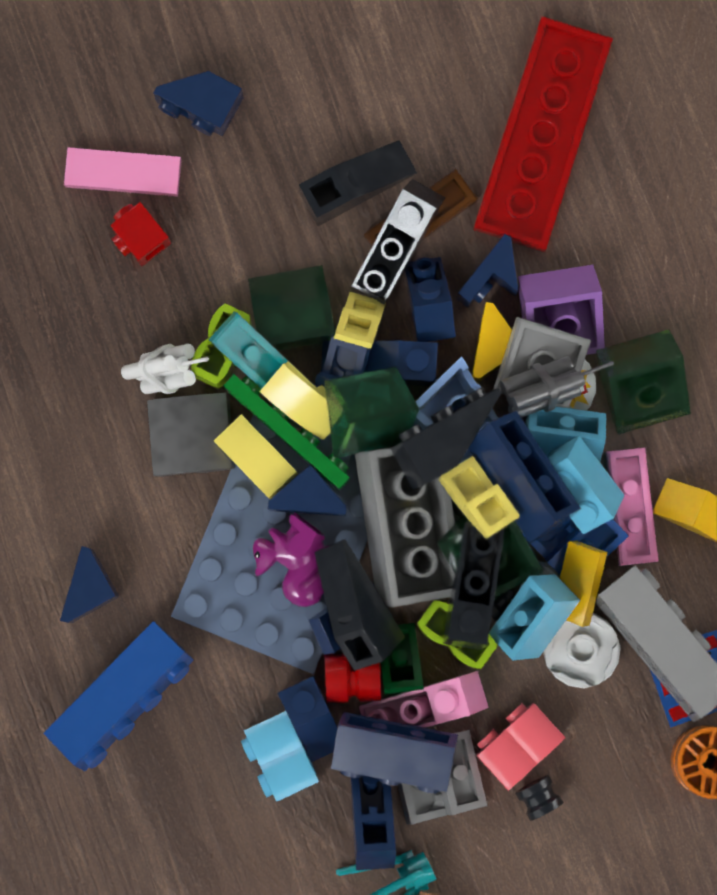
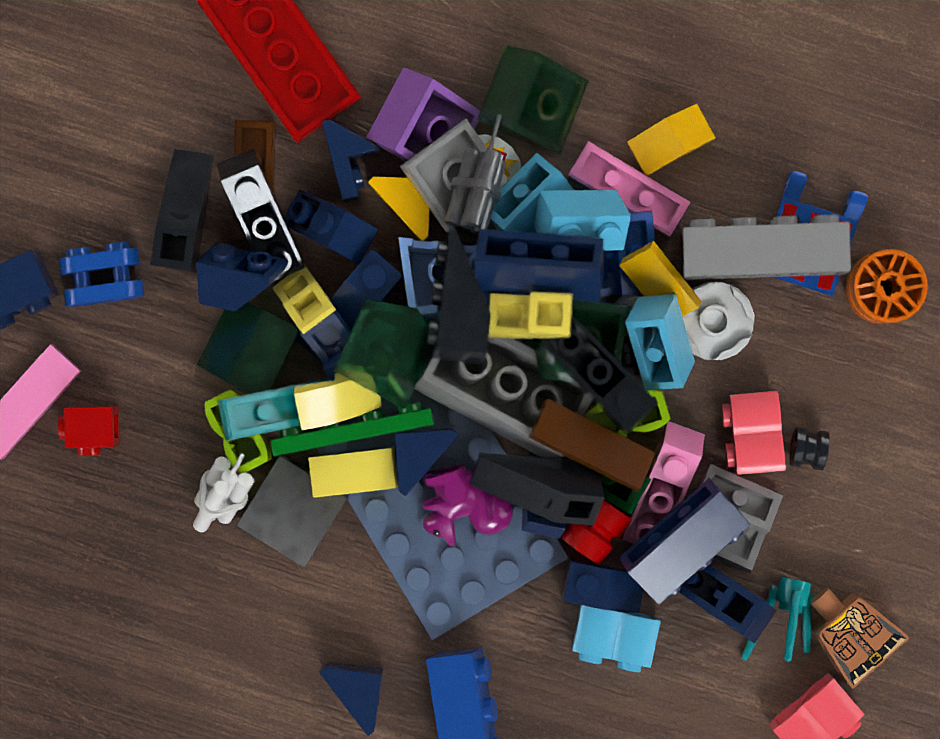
camera: 50 degrees left, 5 degrees up
(283, 158) = (116, 258): none -> blue brick
(337, 254) = (234, 276): none -> dark blue slope
(415, 622) = (592, 445): none -> reddish brown tile

